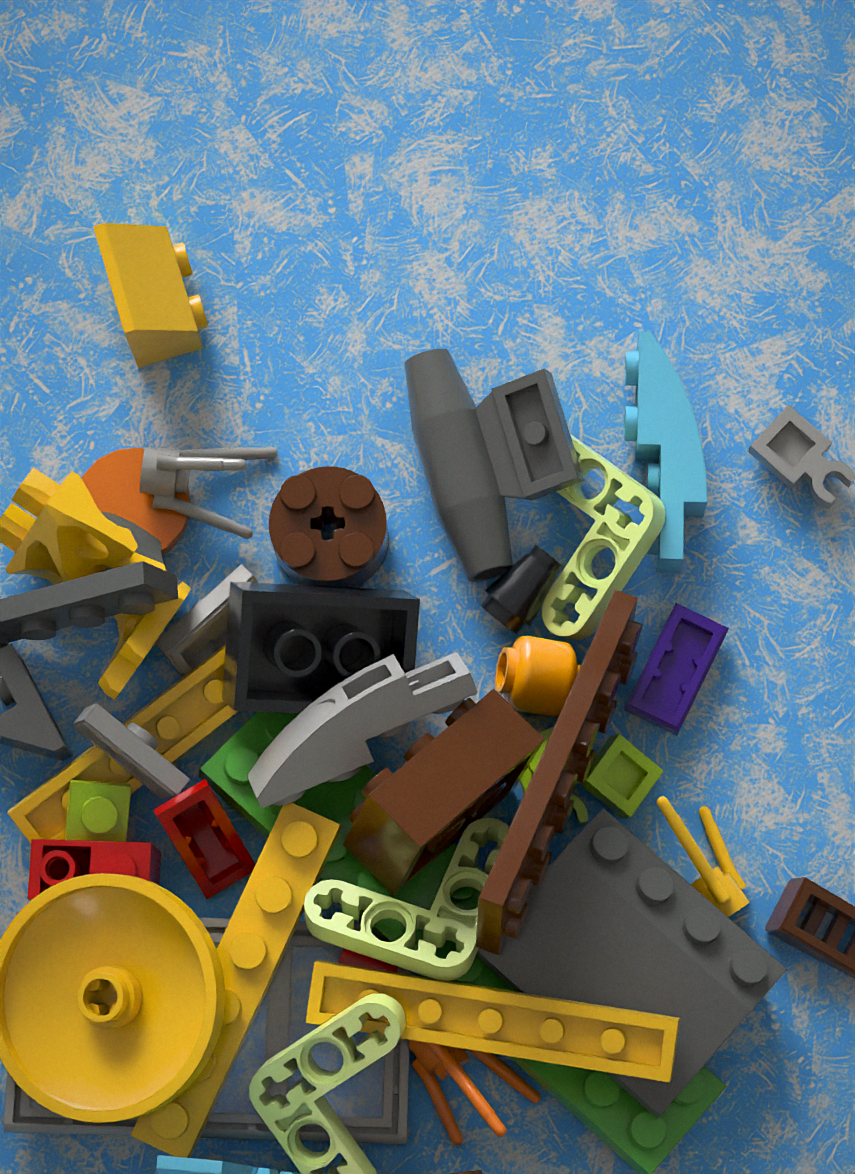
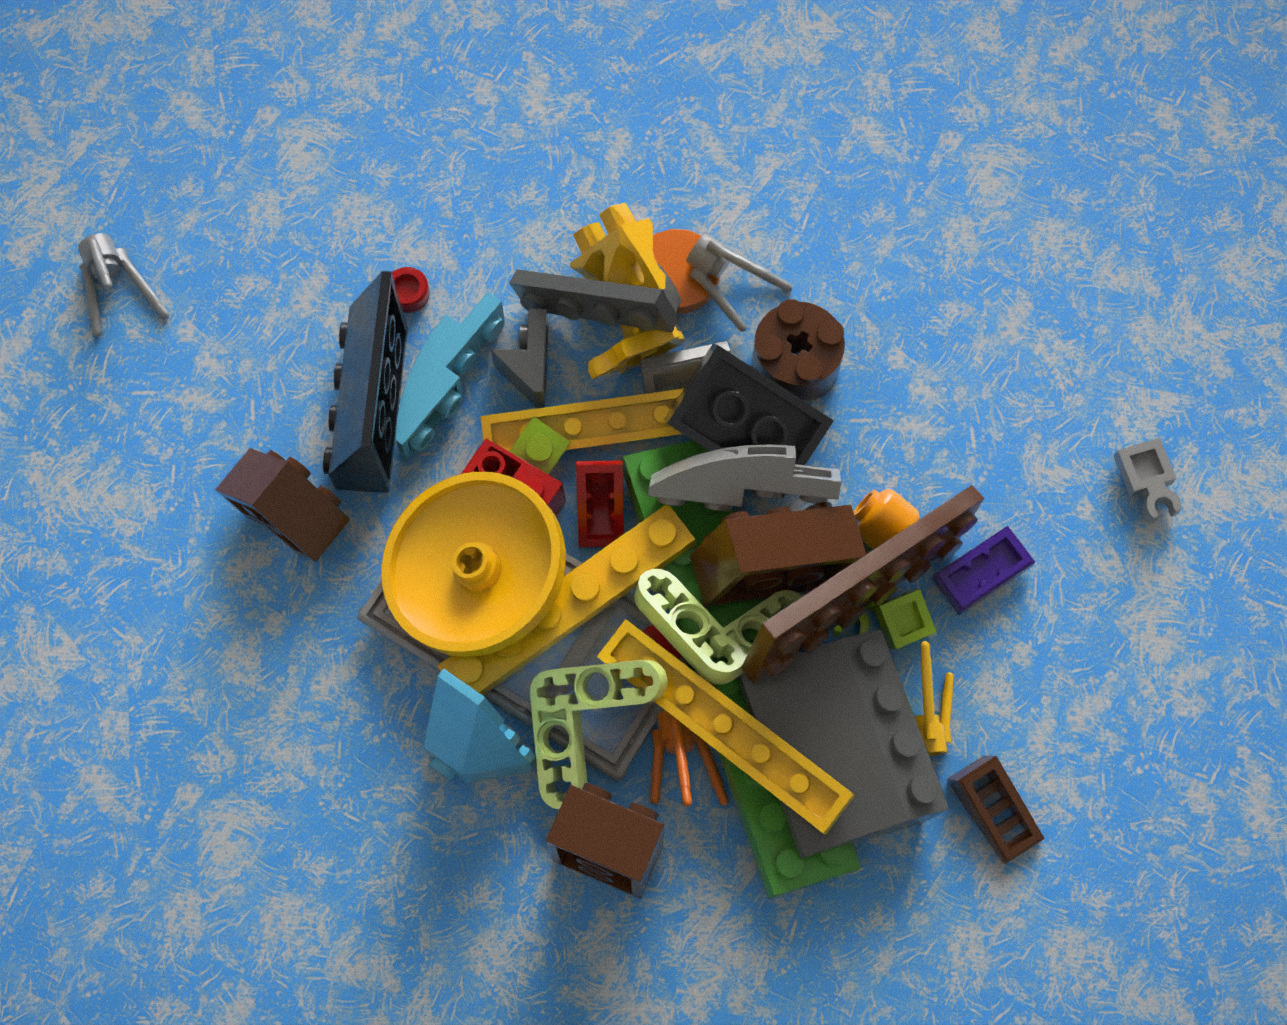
camera: 25 degrees right, 5 degrees down
(131, 749) = (584, 415): light grey plate -> none
(150, 291) = (766, 139): yellow slope -> none
(480, 454) = (927, 357): dark grey plate -> none
(522, 589) = (906, 460): black cone -> none
(610, 530) = (989, 451): yellowish green beam -> none
(665, 432) = (1061, 422): medium azure slope -> none

